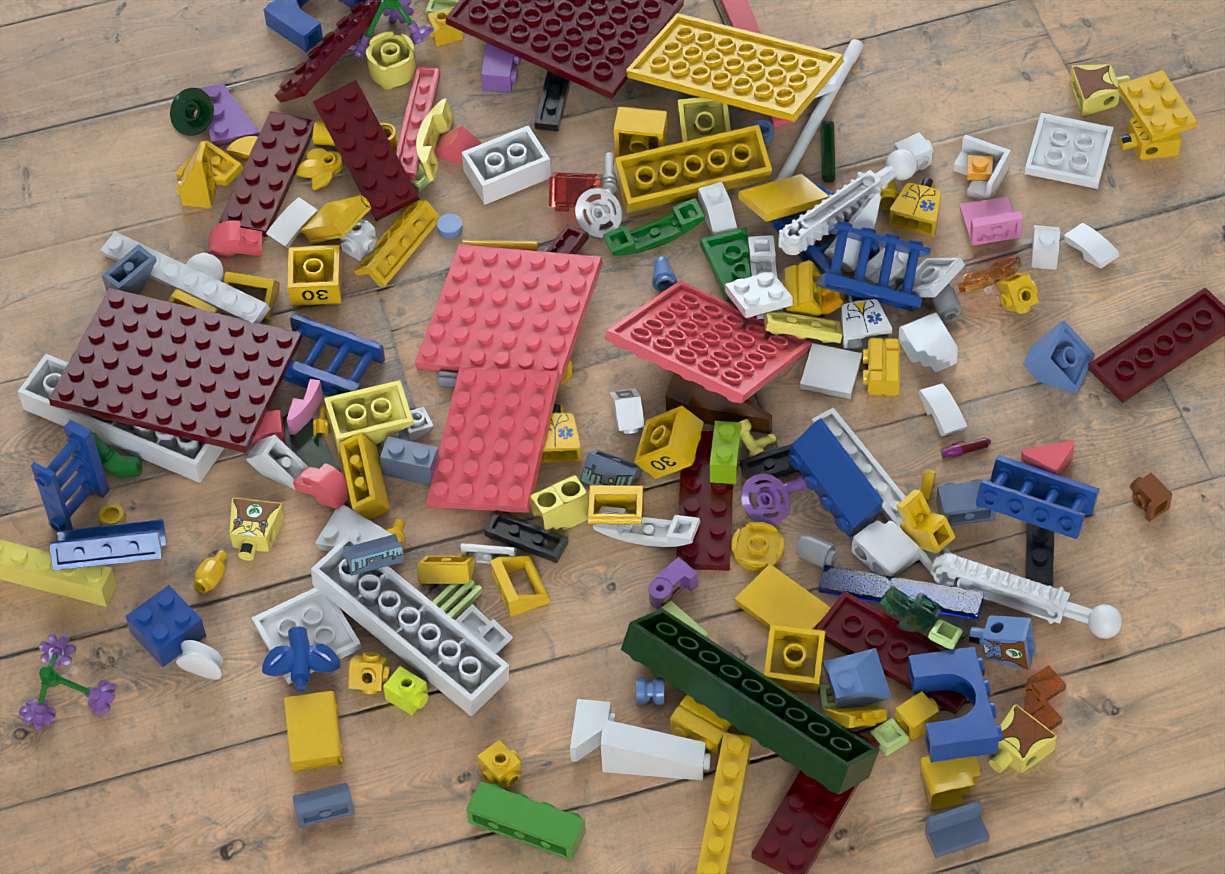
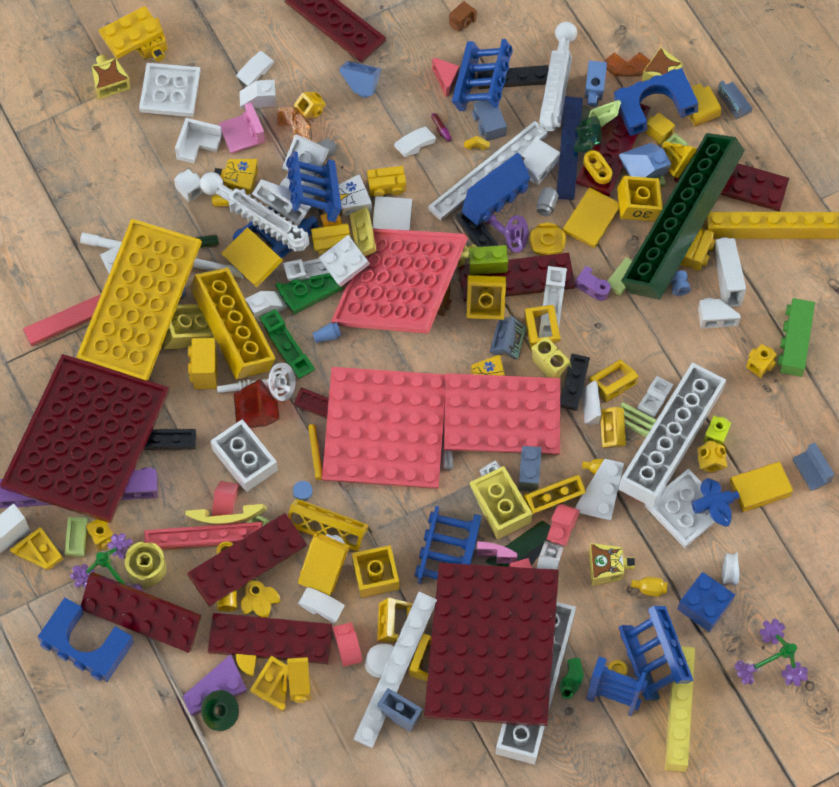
camera: 105 degrees left, 10 degrees up
(321, 424) = (507, 539): yellow hand -> none
(373, 554) = (637, 455): sand blue panel -> none
(627, 410) = (453, 335): white slope -> none
(854, 613) = (599, 168): none -> yellow plate
(925, 528) = (523, 133): yellow brick -> none
(929, 342) = (360, 154): white piece -> none
(979, 167) = (197, 140): light orange plate -> none

